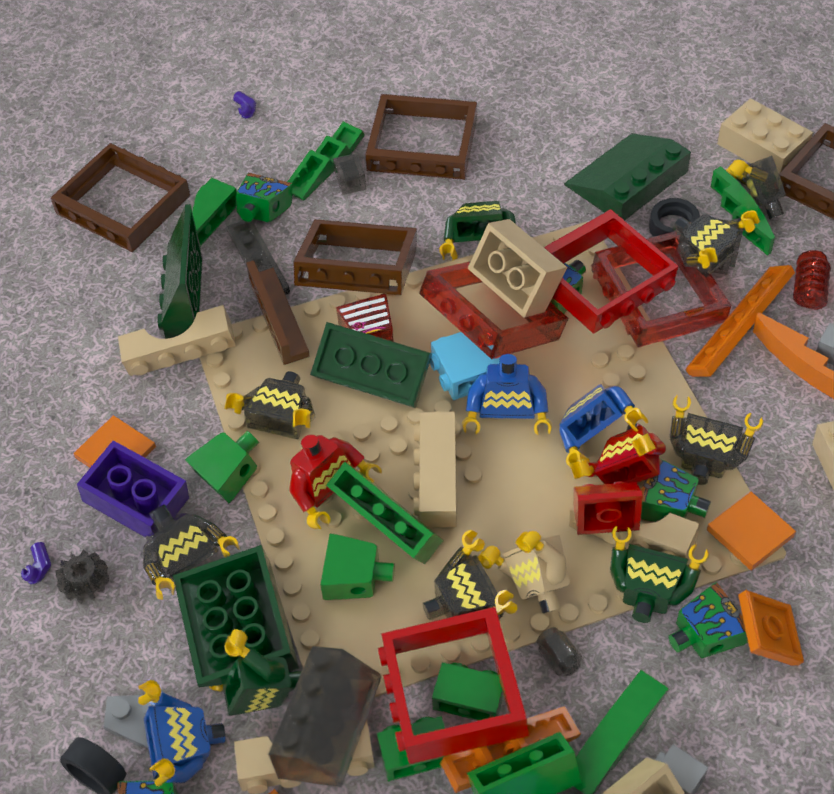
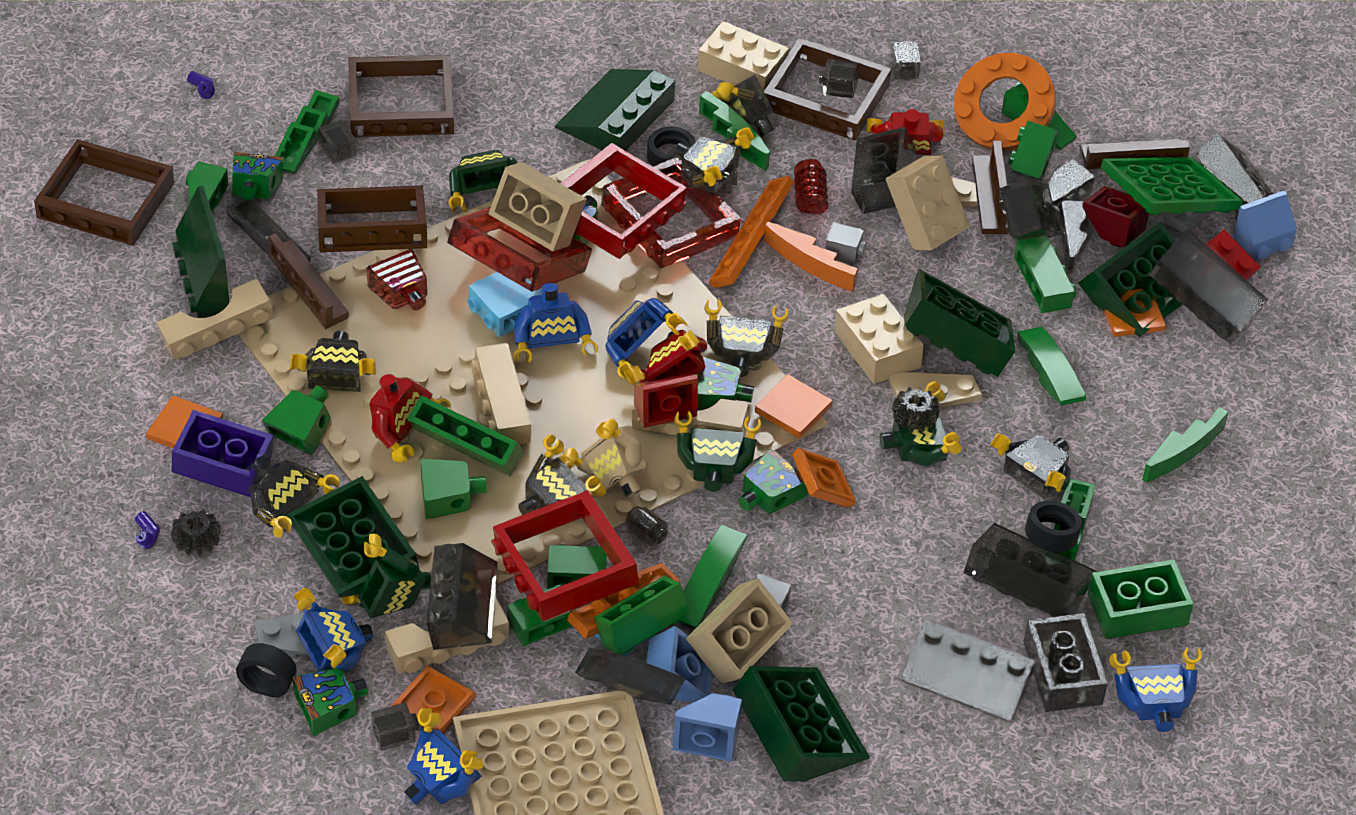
camera: 20 degrees left, 5 degrees down
(371, 364) = (414, 314): dark green tile -> none

